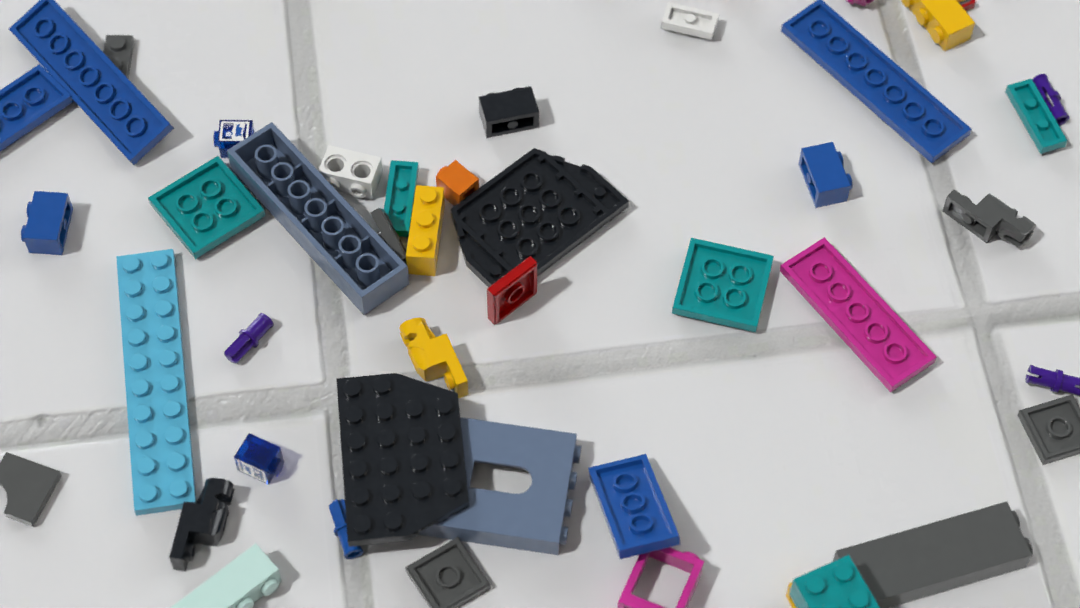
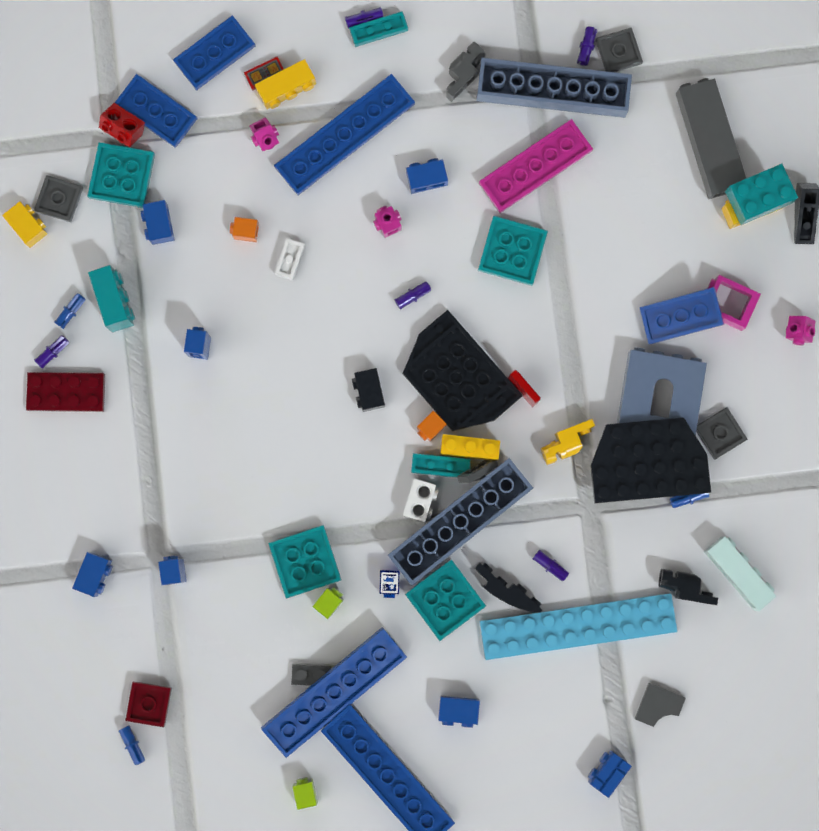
camera: 90 degrees left, 25 degrees up
(207, 283) = (513, 595): none -> black slope
(210, 62) = (328, 602): none -> lime brick
(259, 459) = (642, 553): clear blue brick -> none
(271, 46) = (305, 561): none -> teal plate
(648, 162) = (412, 295): none -> dark purple axle
(752, 126) = (387, 227): none -> dark pink brick
(981, 332) = (554, 87): none -> sand blue brick

